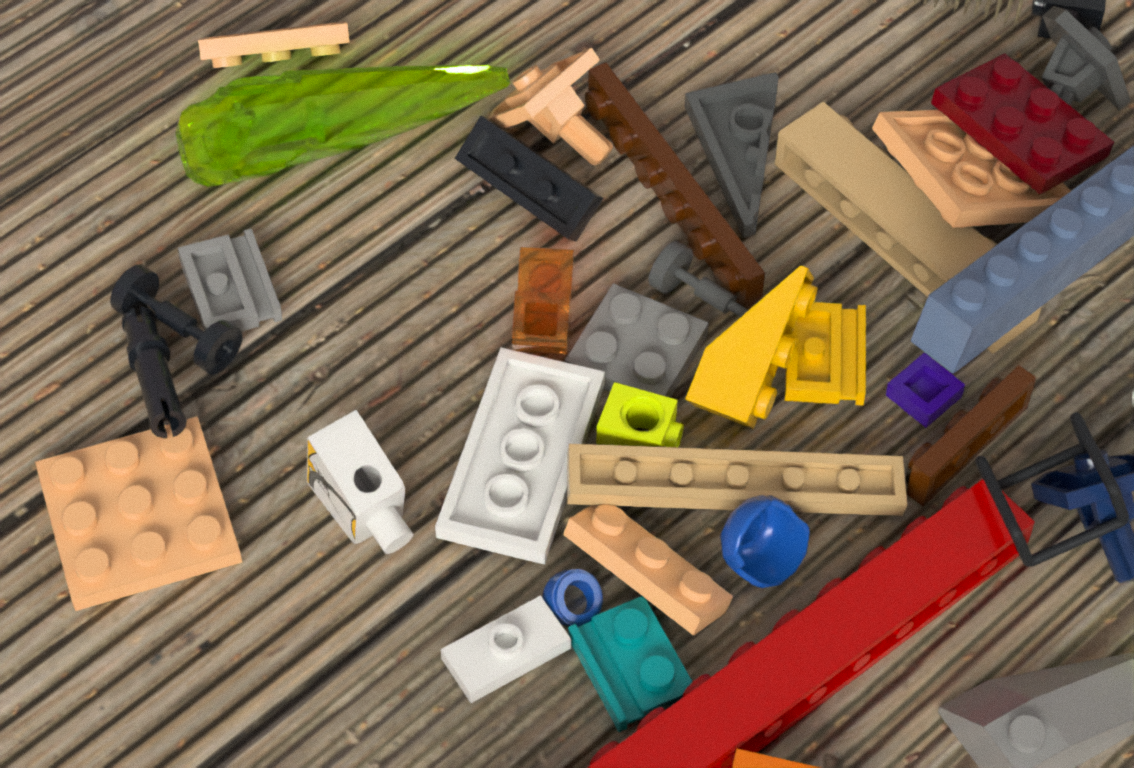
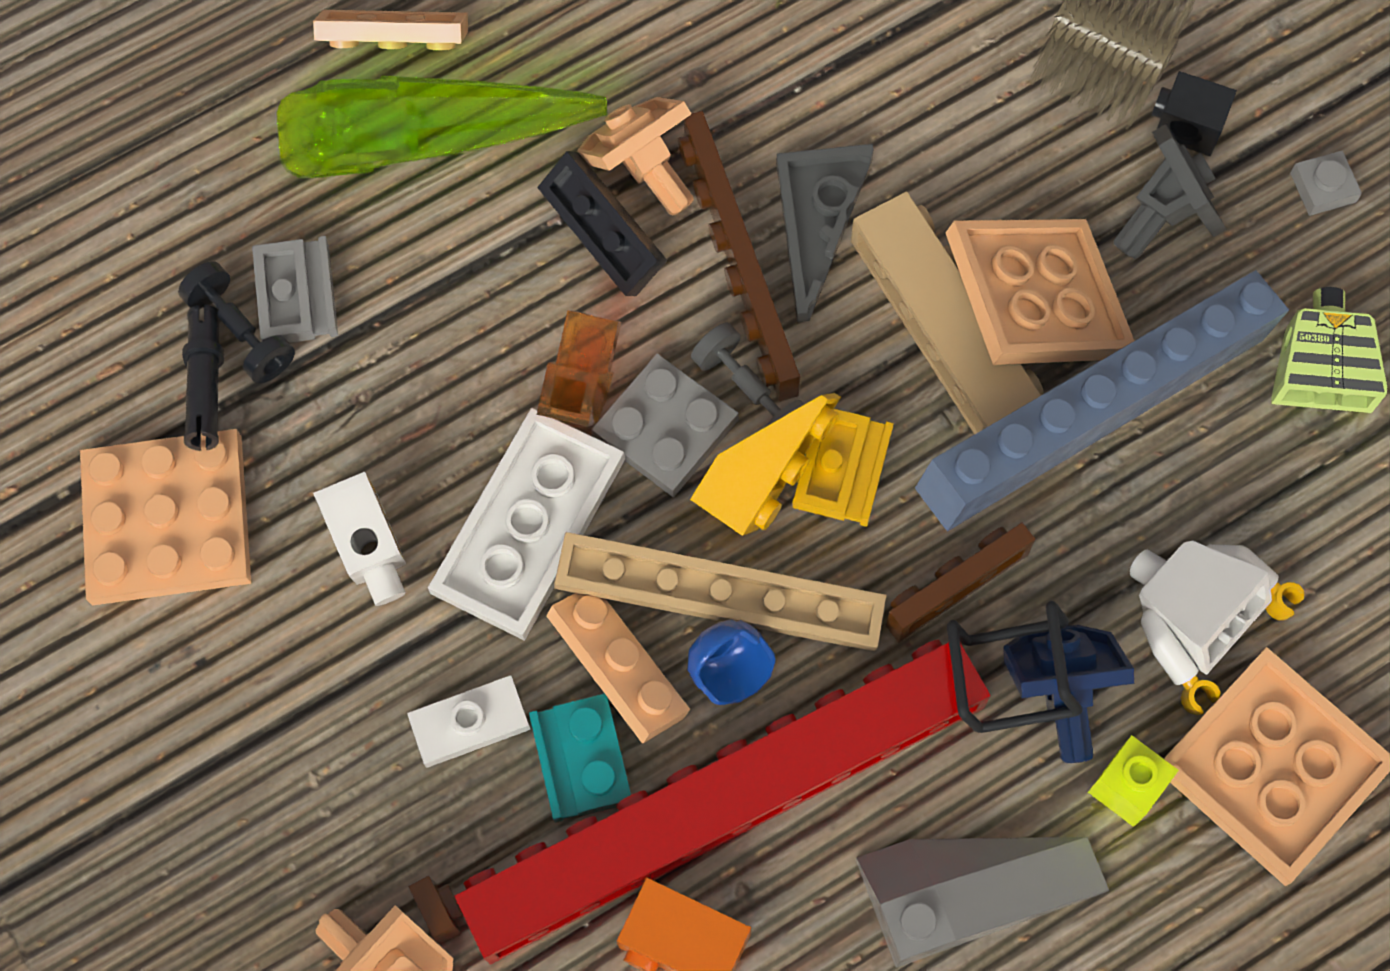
camera: 15 degrees right, 15 degrees up
(554, 596) = (529, 667): blue piece -> none
(636, 408) = (634, 496): neon yellow brick -> none
(925, 390) = (924, 530): dark purple plate -> none
(1022, 123) = (1100, 250): dark red plate -> none

